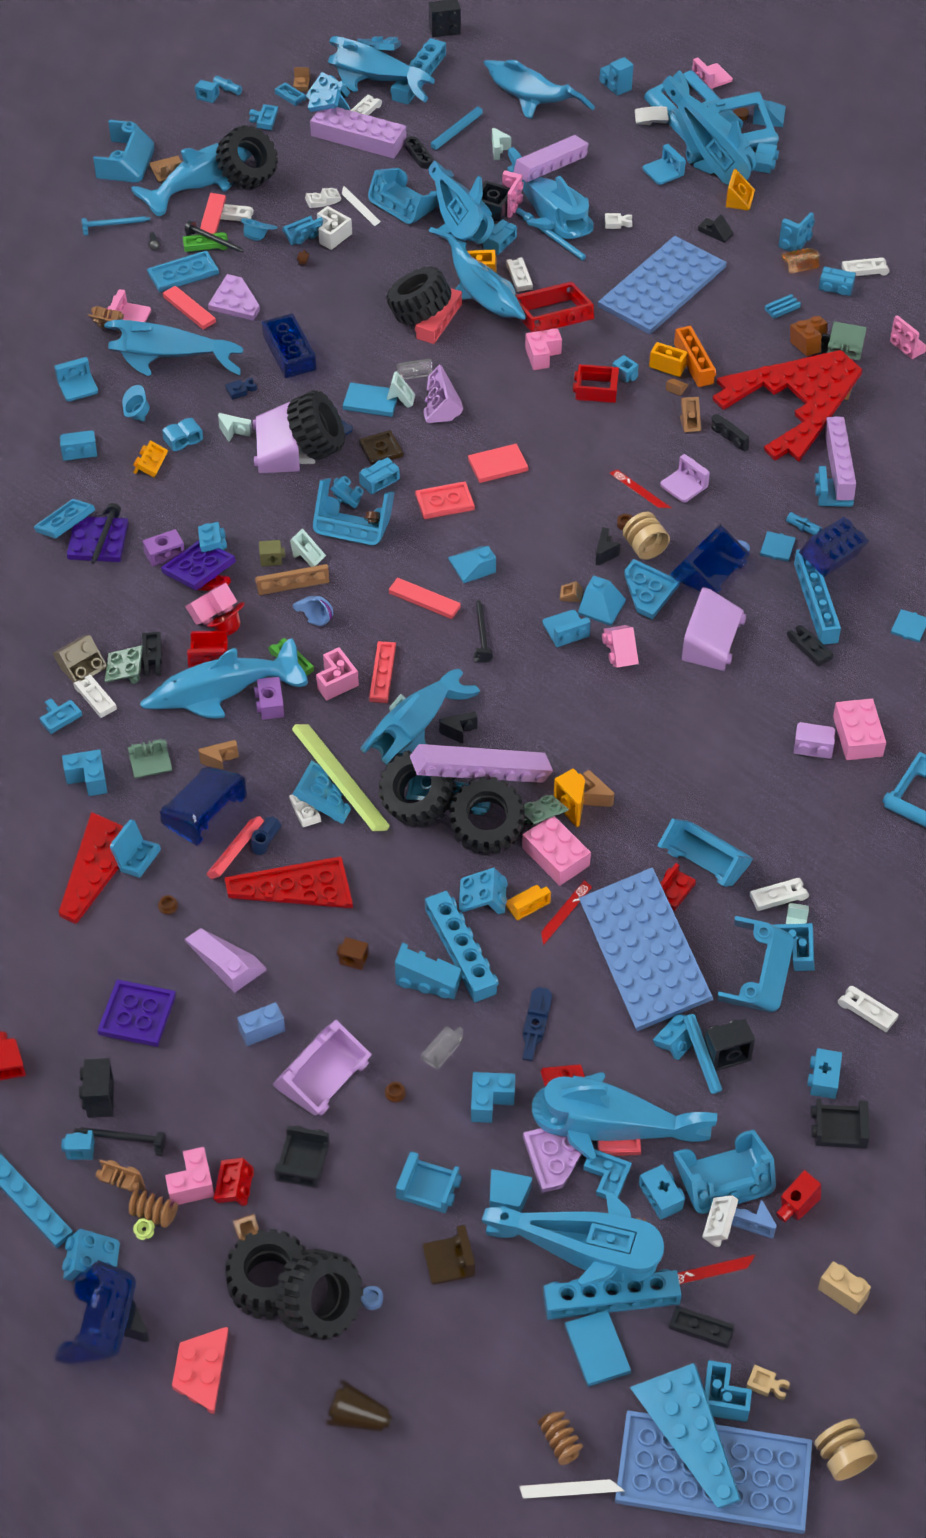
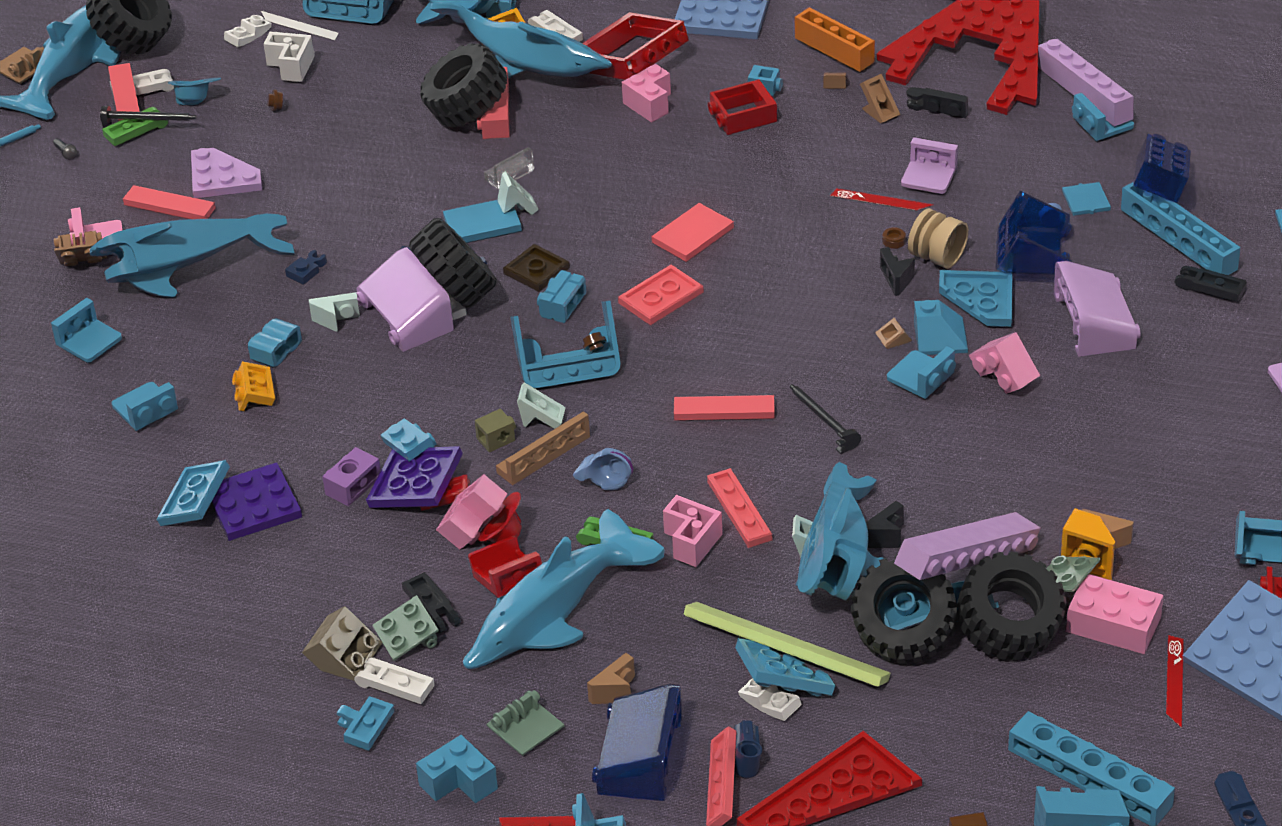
camera: 25 degrees left, 10 degrees down
(113, 511) = (254, 459): black piece -> none
(135, 403) = (187, 328): dark azure piece -> none
(183, 271) = (128, 167): dark azure tile -> none
(270, 698) = (626, 591): medium lavender brick -> none
(289, 345) = (337, 197): clear blue brick -> none
(302, 230) = (253, 70): dark azure bracket -> none
(345, 493) = (537, 330): dark azure hips -> none
(442, 400) = (568, 188): lavender wedge -> none
(474, 563) = (754, 345): dark azure slope -> none
(483, 889) = (1065, 695): dark azure bracket -> none
(528, 901) = (1125, 685): light orange panel -> none
(668, 359) = (807, 52): light orange brick -> none
(805, 524) = (1098, 164): dark azure pin -> none

